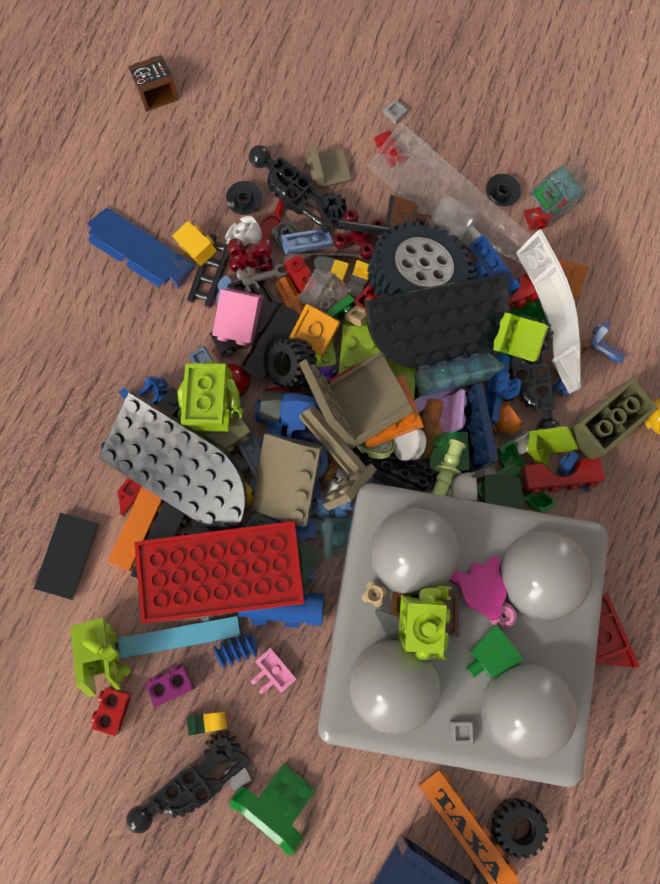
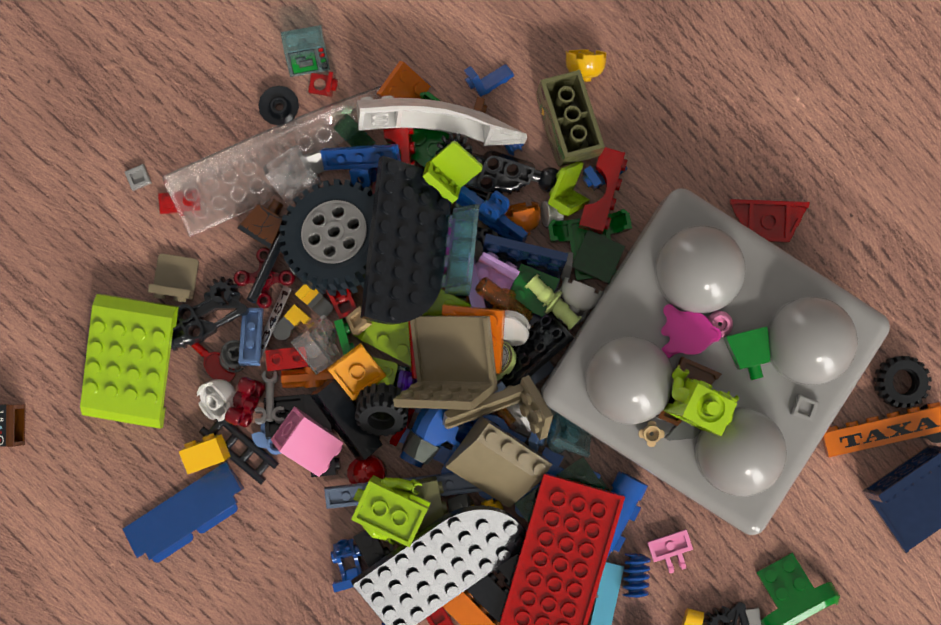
camera: 60 degrees left, 10 degrees up
(240, 191) = (185, 382): black dish -> none
(245, 154) = (128, 360): none -> lime slope
(509, 250) = (348, 130): none -> clear green tile

